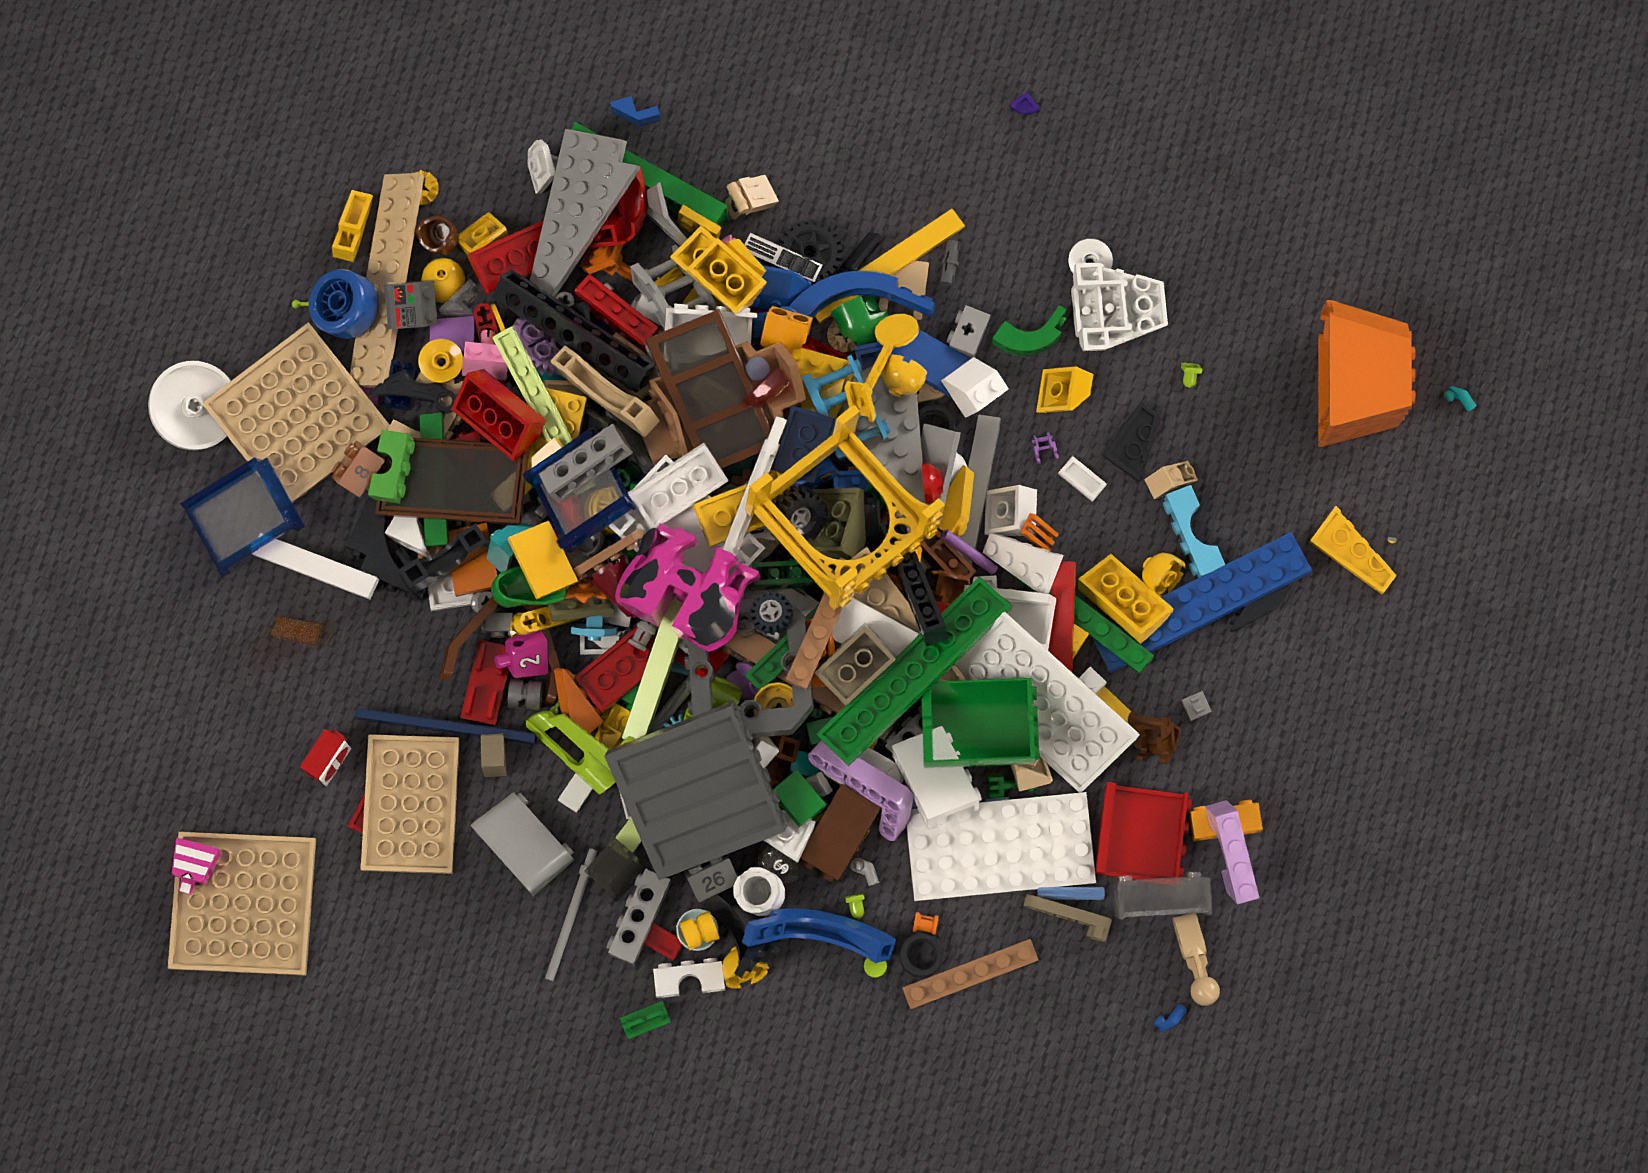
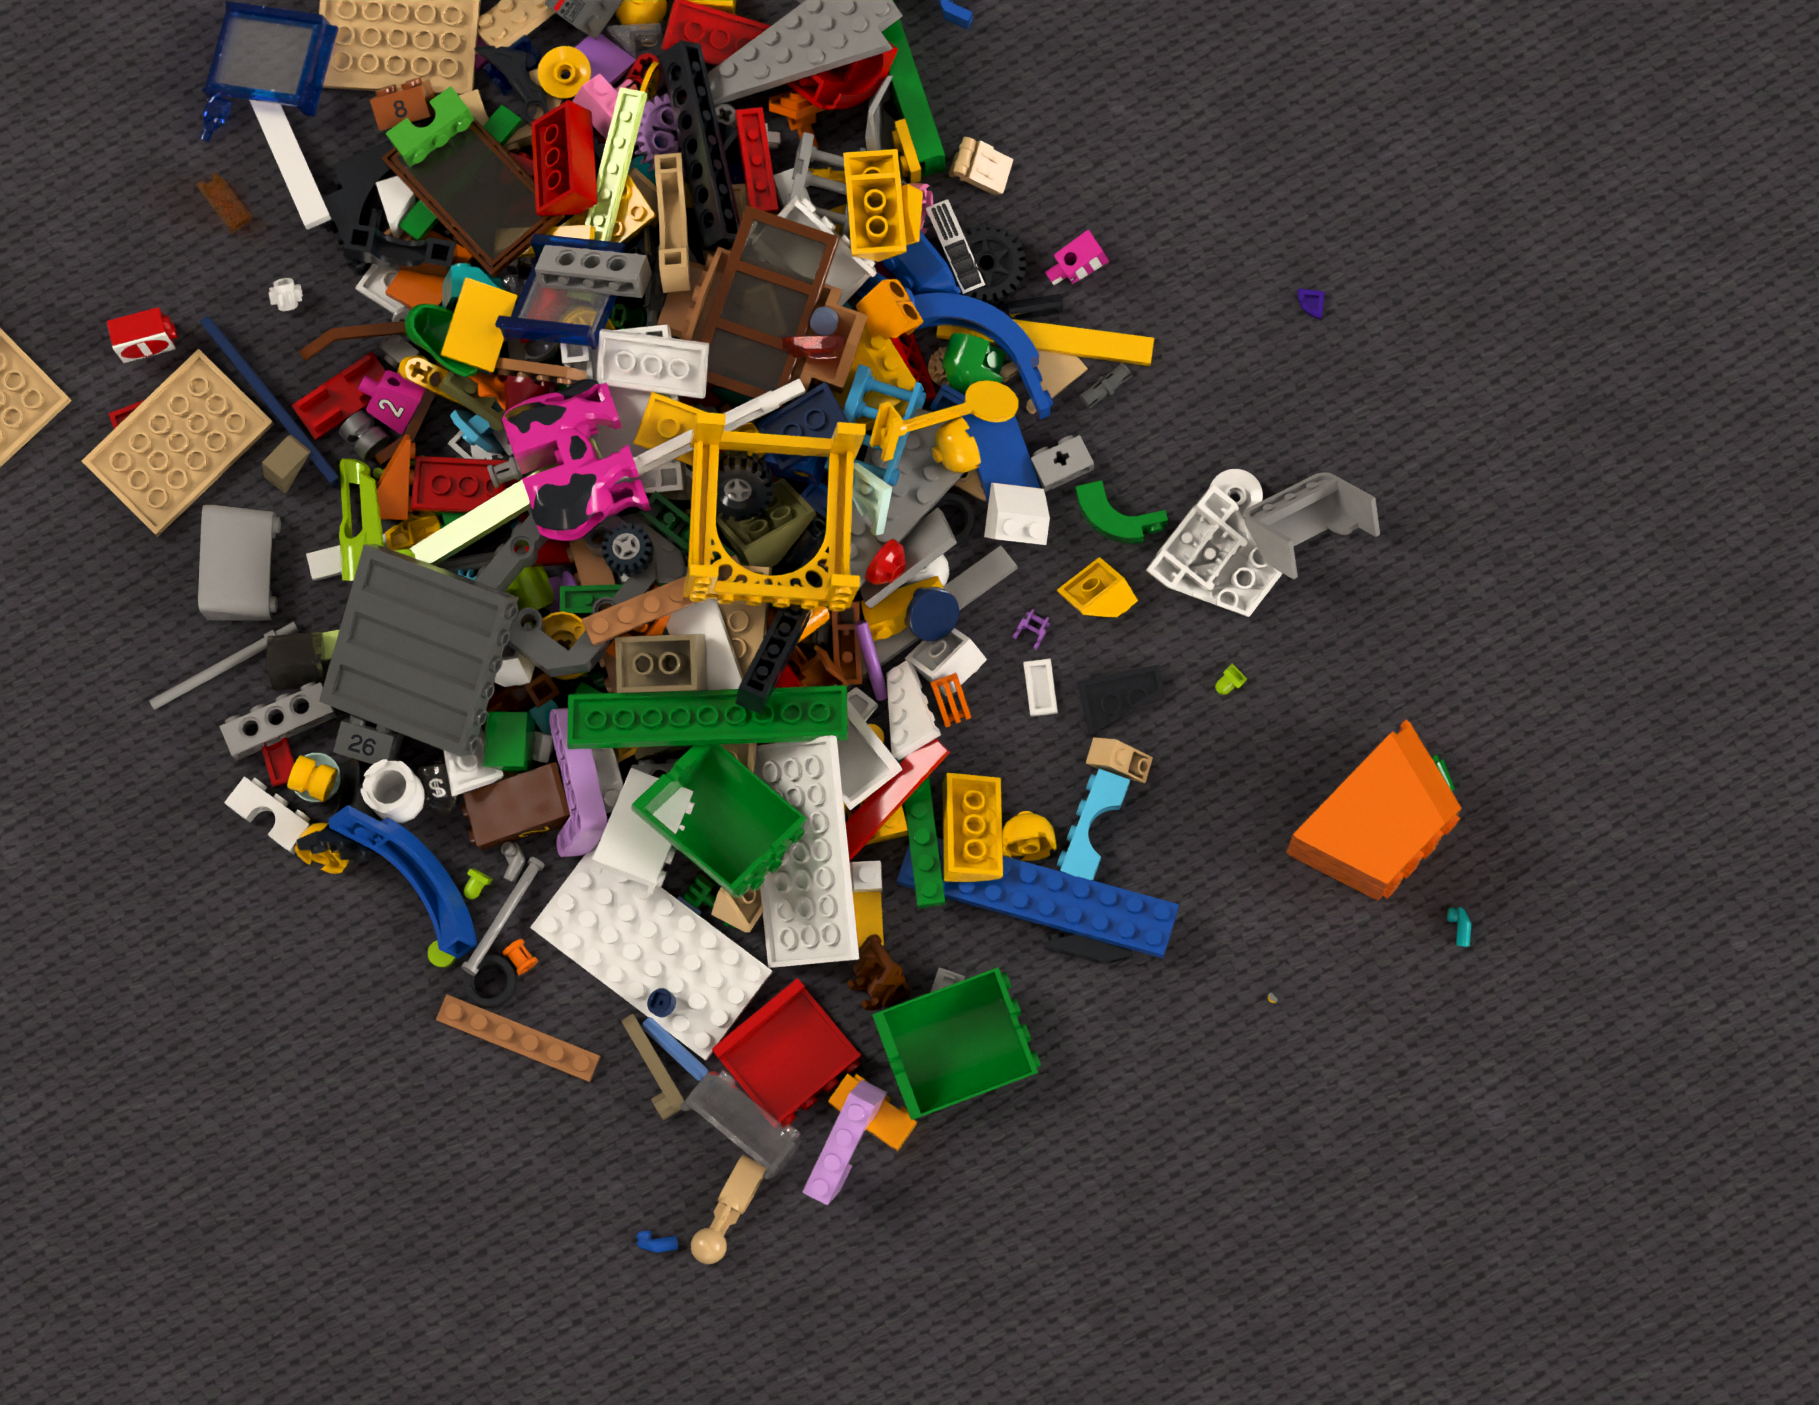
camera: 50 degrees right, 0 degrees up
(238, 582) = (214, 115): none -> clear blue piece
(391, 652) = (285, 294): none -> white gear
(645, 1020) = (199, 816): green hinge -> none
(865, 191) = (1088, 257): none -> dark pink torso
(887, 450) = (871, 497): none -> light aqua wing
(893, 909) = (510, 904): none -> light grey bar
(980, 490) = (932, 613): none -> dark blue tile
(1040, 871) = (661, 1002): none -> dark blue tile
(1141, 231) = (1305, 511): none -> light grey windscreen
(1240, 735) = (956, 1043): none -> green cylinder
(1347, 547) = (1222, 966): yellow wing -> none

